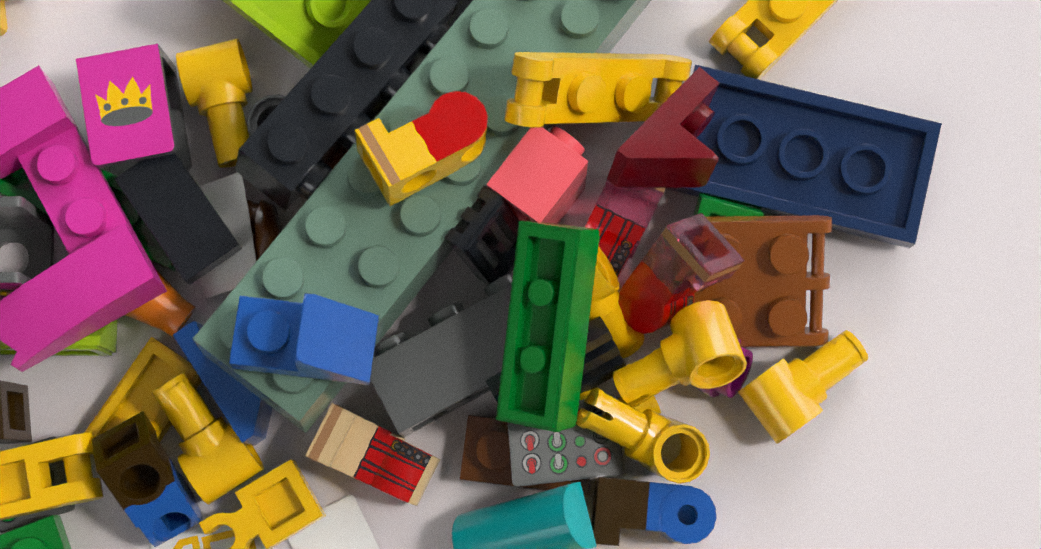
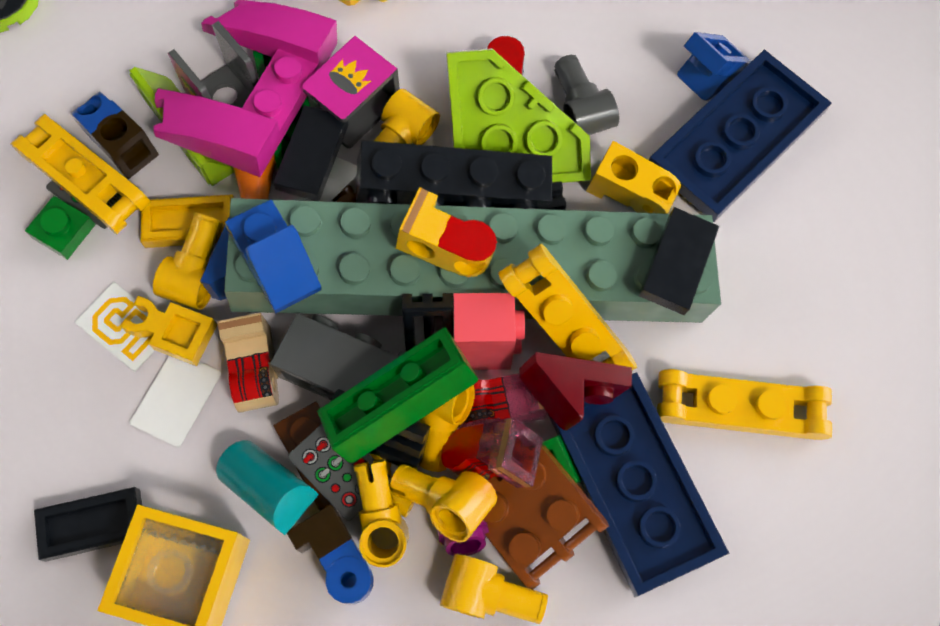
camera: 45 degrees right, 10 degrees down
(145, 480) = (139, 247): dark brown leg -> none

